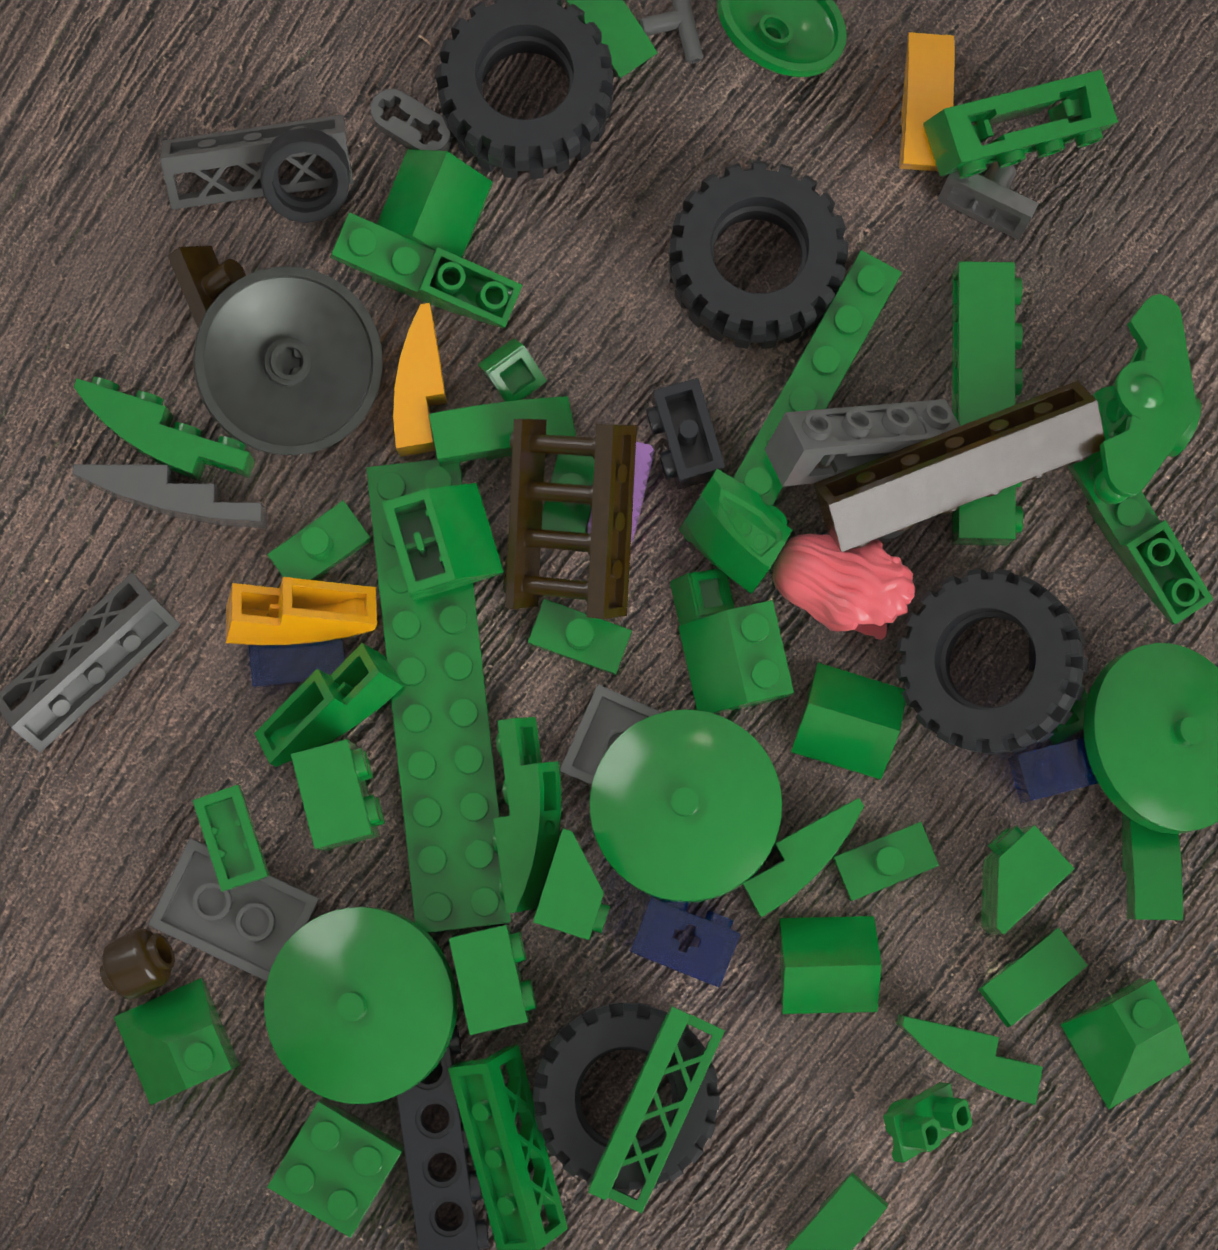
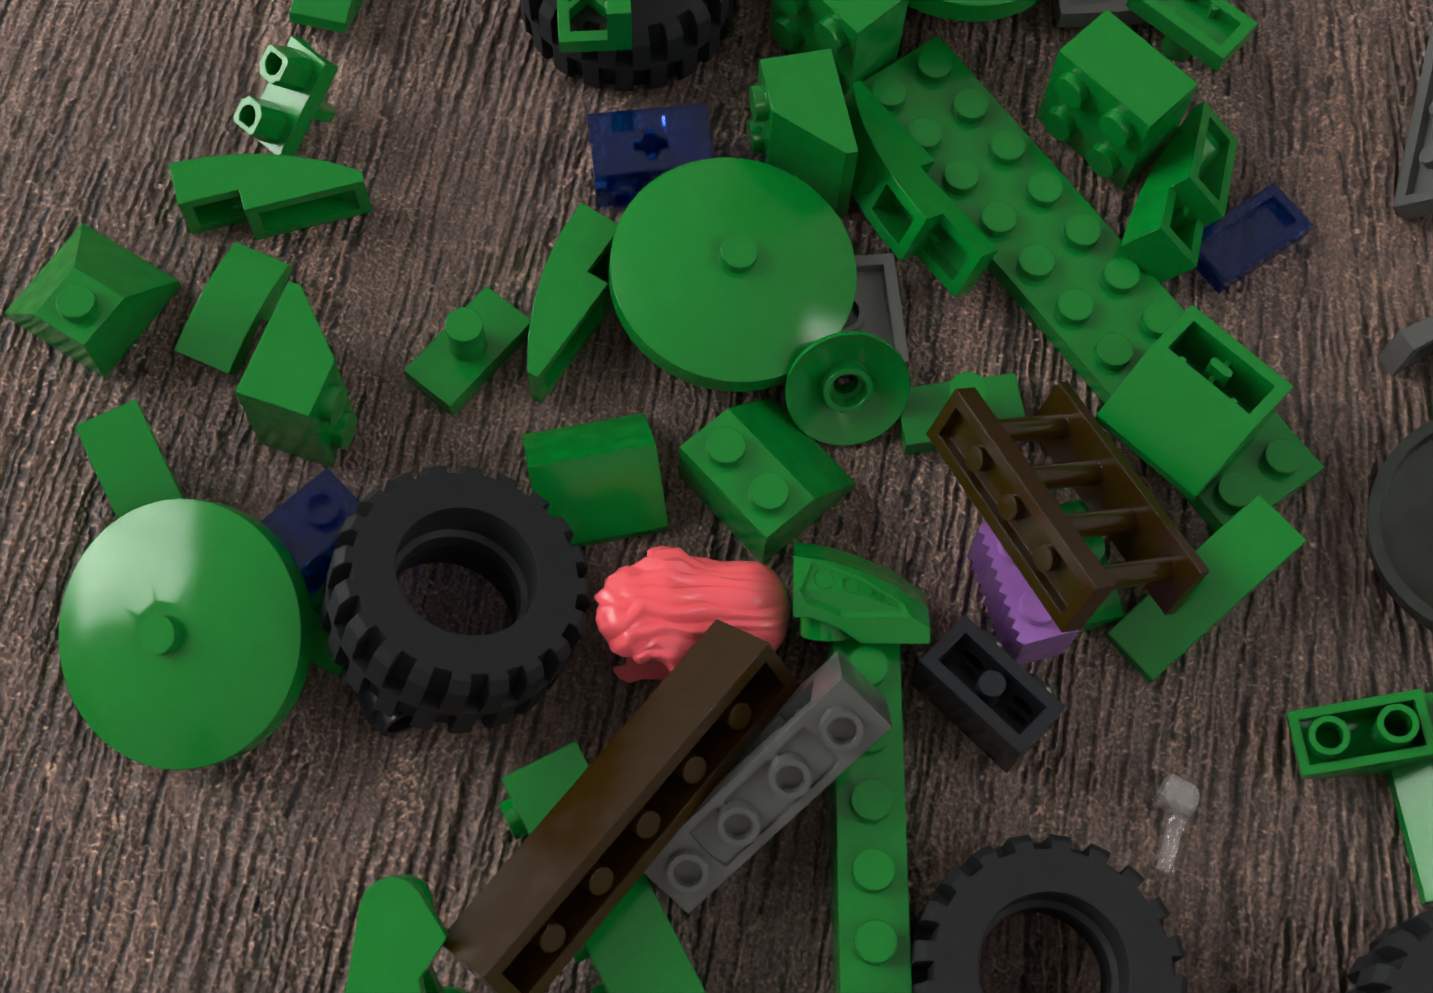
camera: 150 degrees right, 15 degrees down
(298, 612) = (1286, 268): light orange slope -> none
(320, 544) = (1313, 358): green tile -> none
(417, 386) = (1342, 596): light orange slope -> none
(512, 371) = (1237, 673): green slope -> none
(602, 317) = (1180, 800): none -> clear hand
(654, 682) = (852, 410): none -> green dish
(701, 595) = (848, 526): green slope -> none
(829, 965) = (480, 218): green slope -> none
(1145, 546) = (305, 865): green slope -> none

